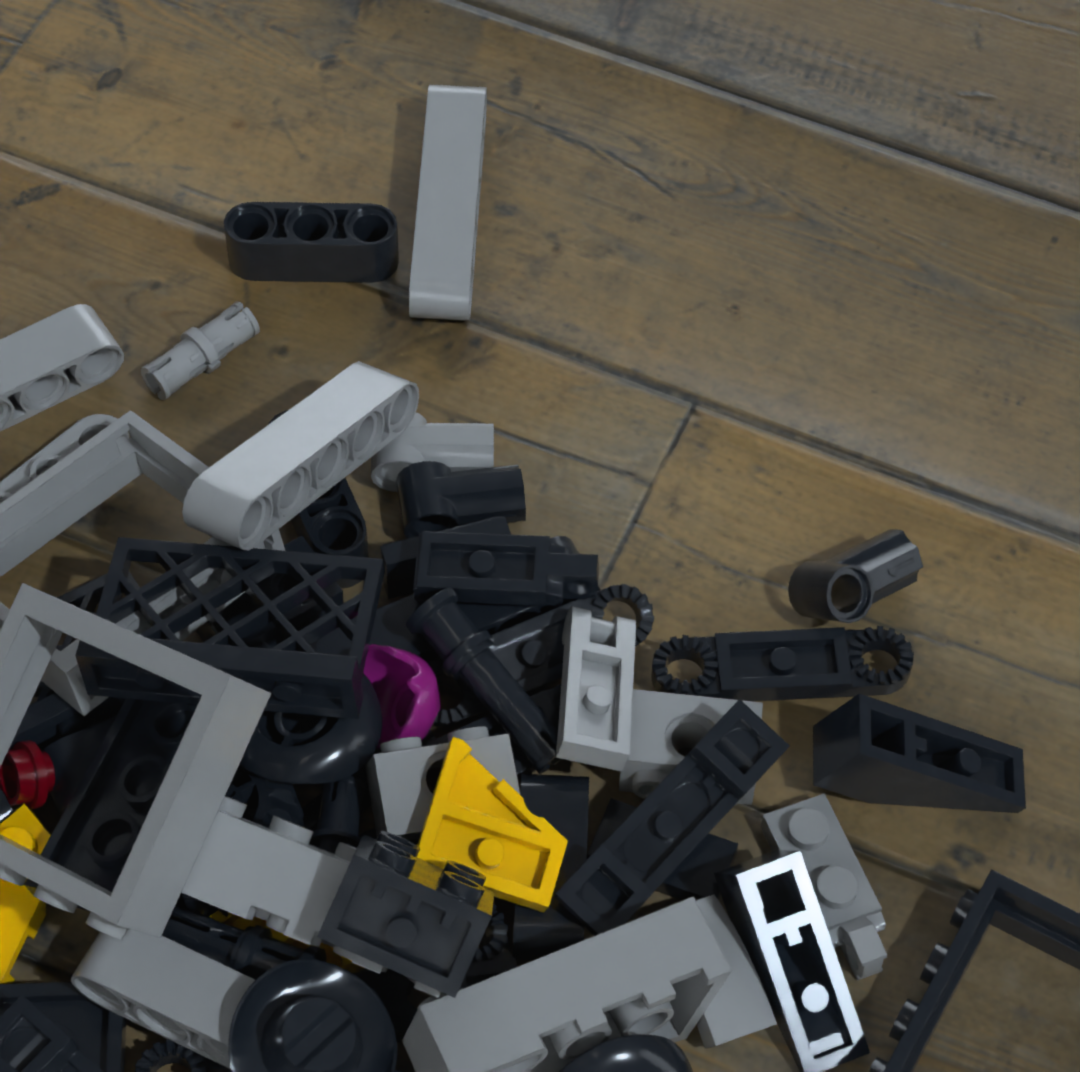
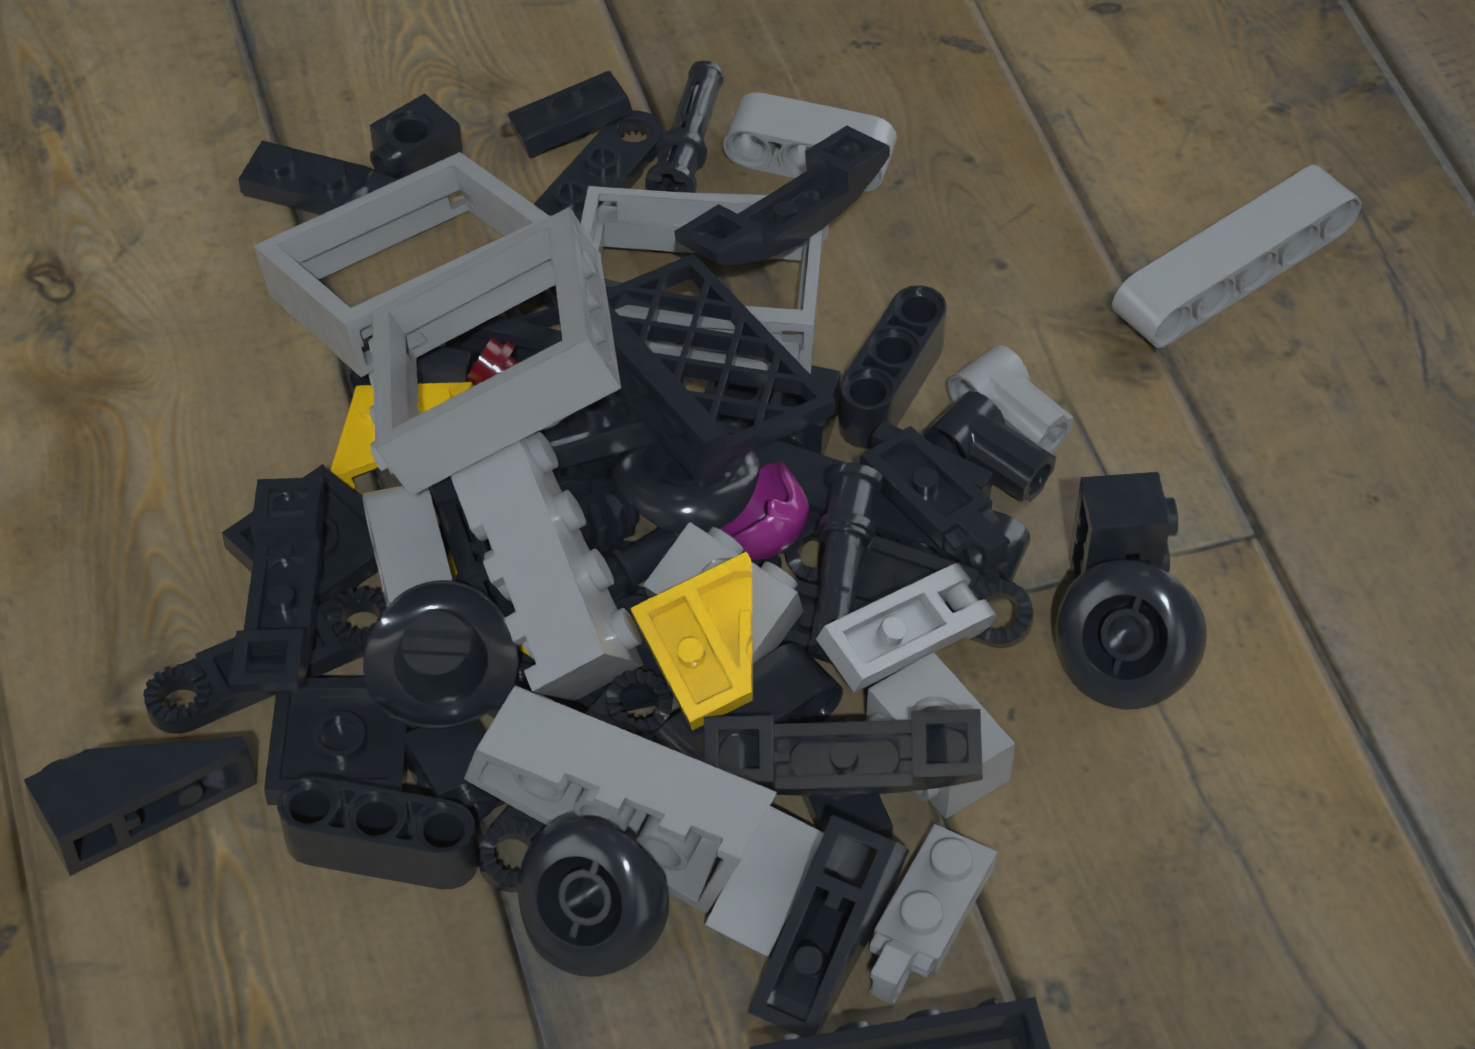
camera: 50 degrees right, 5 degrees down
(126, 432) = (835, 177): none -> black slope
(200, 350) = (939, 217): light grey pin -> none
(300, 456) = (882, 304): light grey beam -> none
(312, 242) = (1100, 204): black beam -> none
(410, 912) = (570, 611): black bracket -> none
(647, 486) = (1122, 521): none -> black brick
(725, 553) = (1129, 634): none -> black hat
(785, 664) = (1082, 748): black plate -> none
(855, 579) = (1214, 740): black piece -> none
(914, 760) = (1092, 893): black slope -> none

